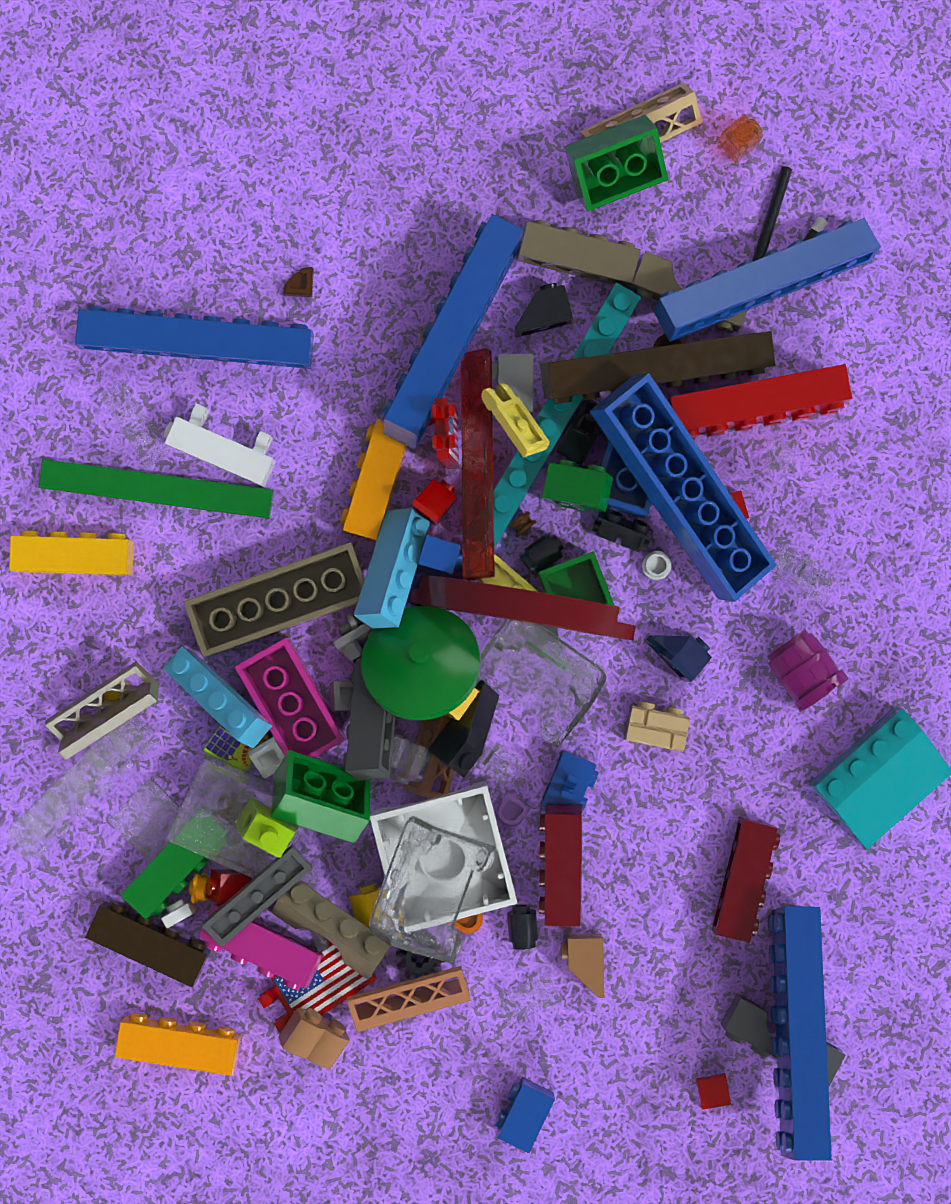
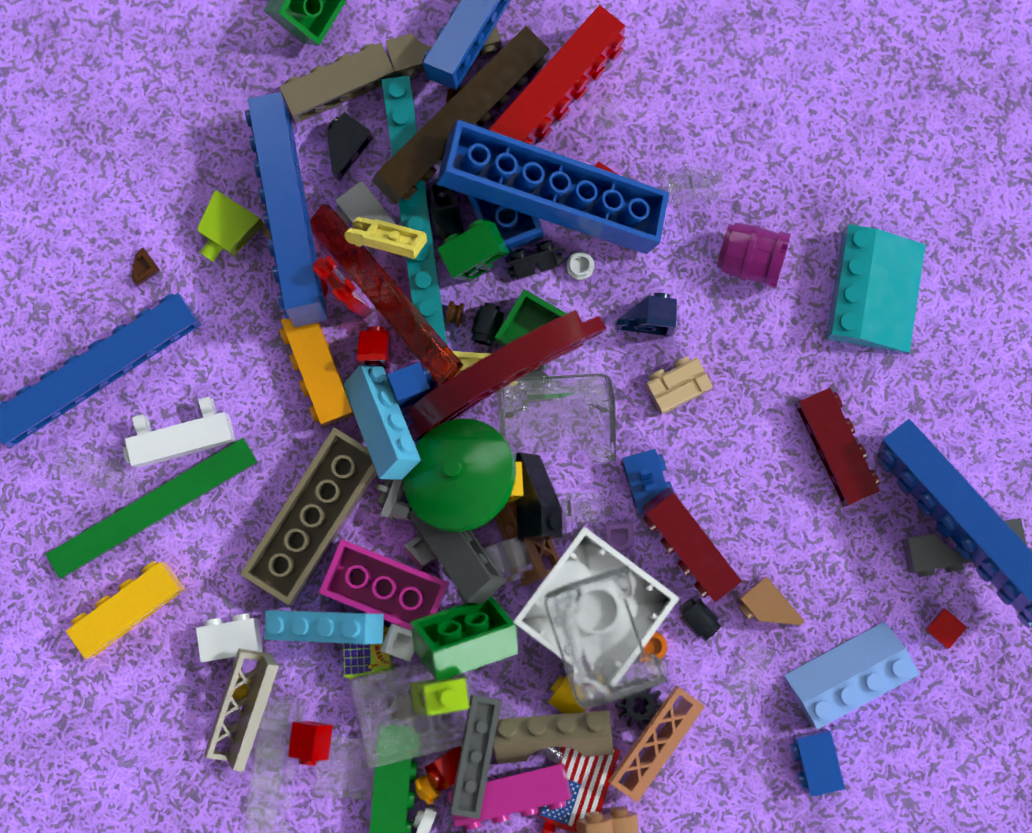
camera: 30 degrees left, 5 degrees down
(135, 643) = (222, 640): none -> white brick
(136, 778) = (310, 742): none -> red brick
(393, 304) = (226, 226): none -> lime torso
(607, 1068) = (851, 675): none -> light blue slope

